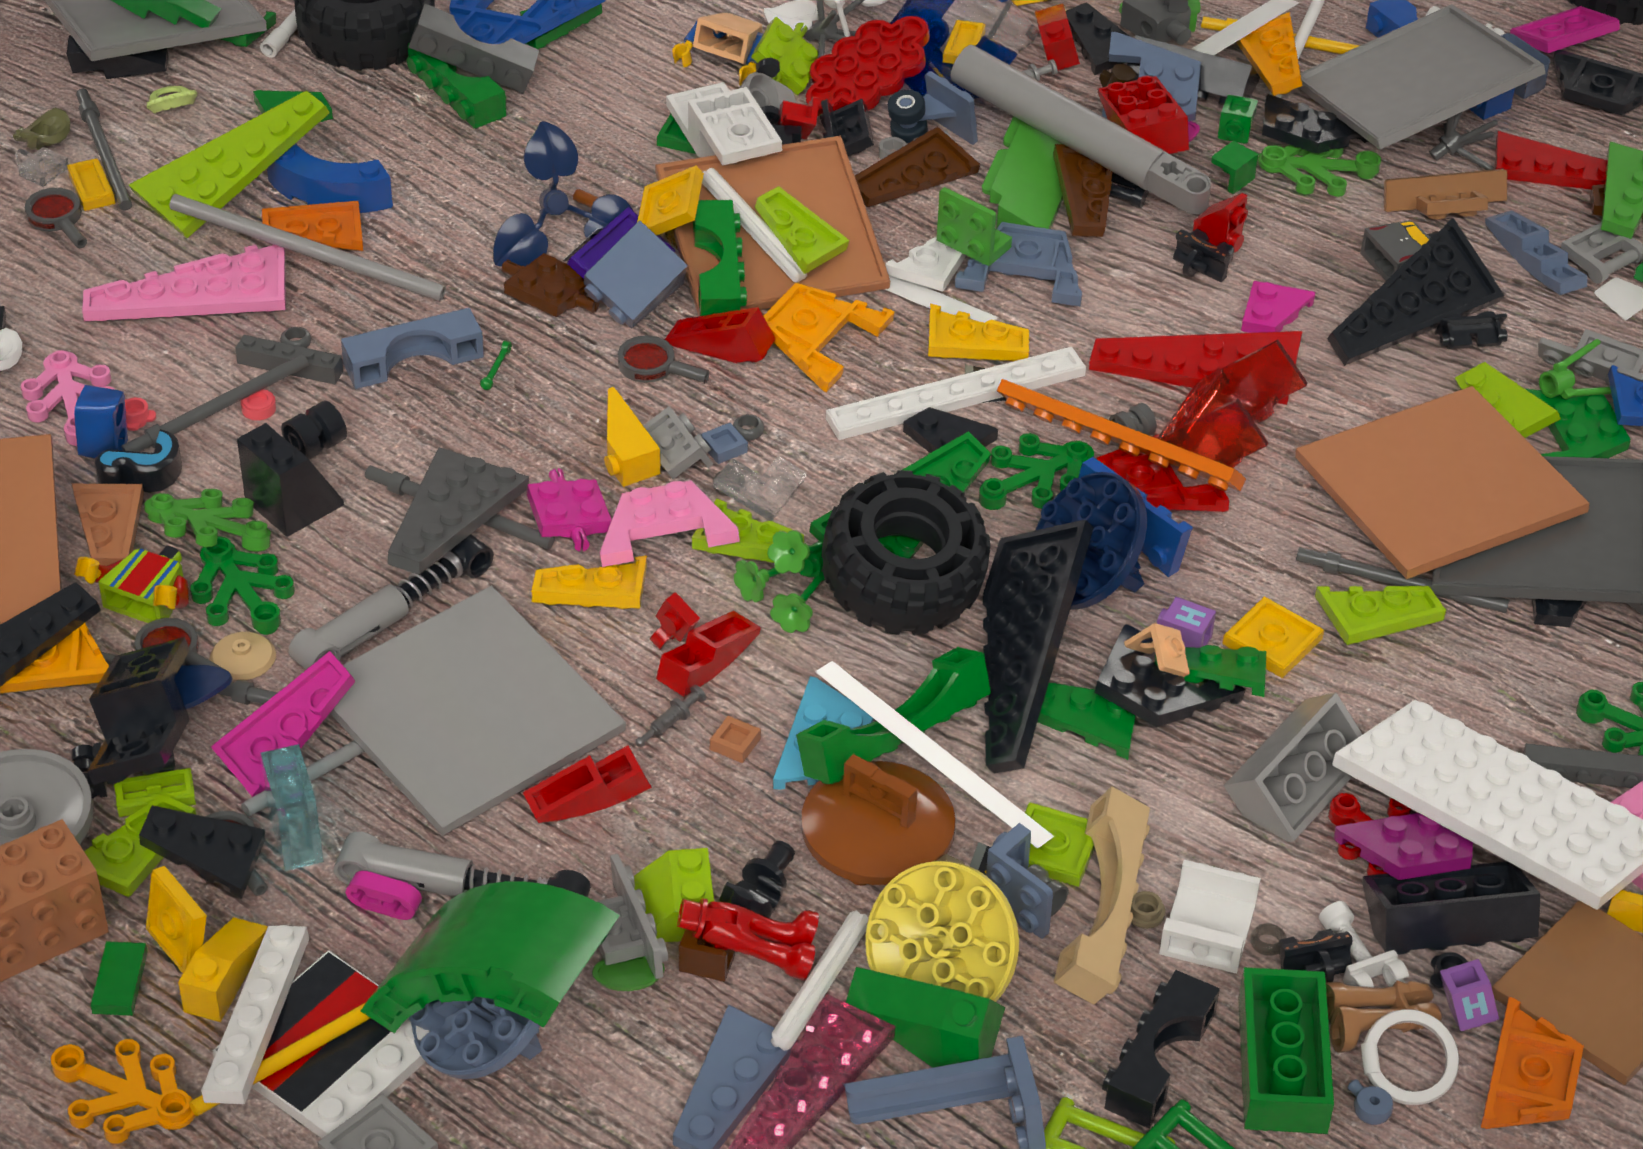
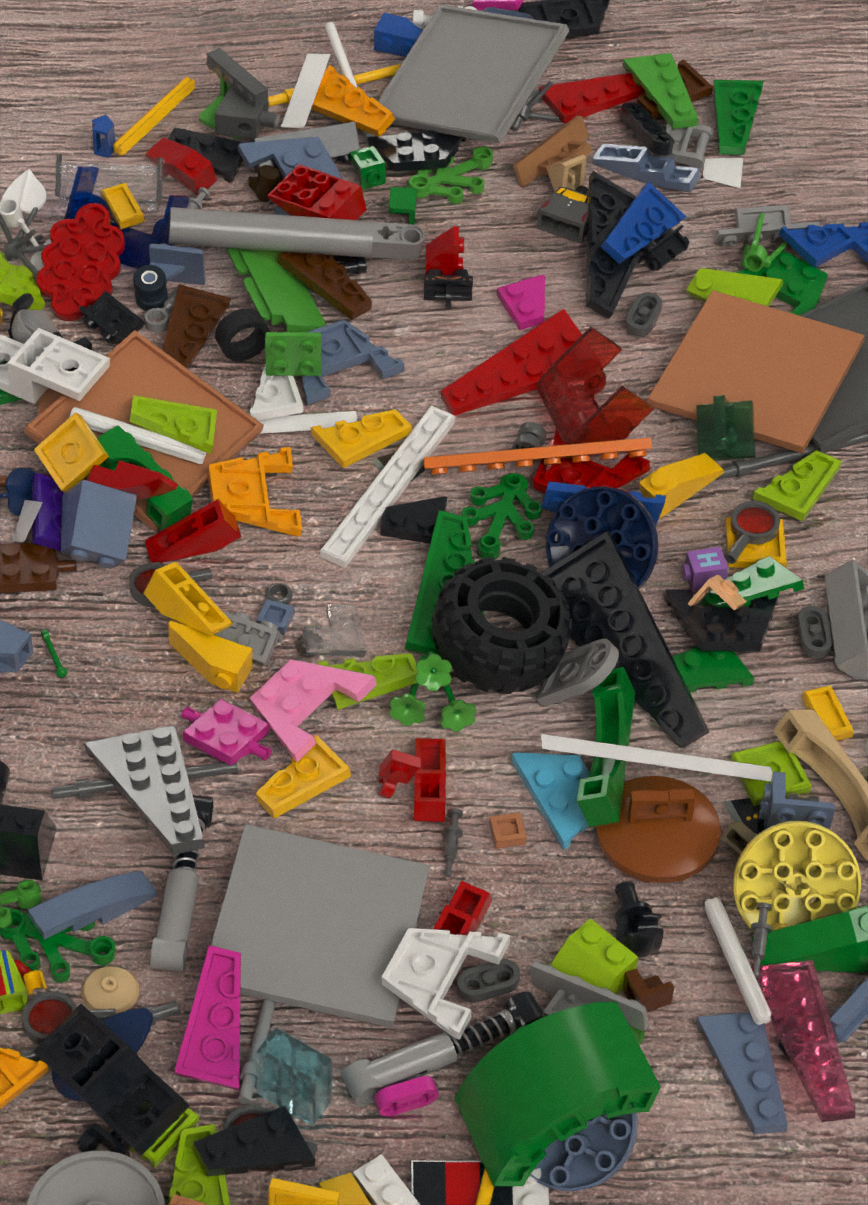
camera: 40 degrees left, 5 degrees up
(285, 569) = (92, 902): none -> sand blue slope
(518, 795) = (427, 966): none -> white wing
(571, 848) = (486, 980): none -> dark grey plate
(641, 374) = (183, 600): none -> yellow slope
(692, 249) = (133, 479): none -> red slope
(738, 930) = (661, 962): red piece -> none
(800, 115) = (76, 327): red panel -> none
(857, 967) = (760, 936): none -> flat silver piece
(933, 642) = (579, 672): none -> light grey plate
(946, 174) = (234, 323): none -> black tyre
(1174, 828) = (830, 711): none -> yellow tile
(1235, 746) = (814, 638): none -> dark grey plate
(1240, 535) = (680, 480): none -> yellow slope
(1279, 614) = (752, 524): none -> dark grey piece
(1342, 513) = (726, 429): none -> clear green bracket
(1382, 376) = (643, 314): none -> dark grey plate
(1431, 211) = (568, 172): none -> tan slope
(1460, 290) = (641, 223): none -> blue wing
(1568, 215) = (646, 128): none -> black beam

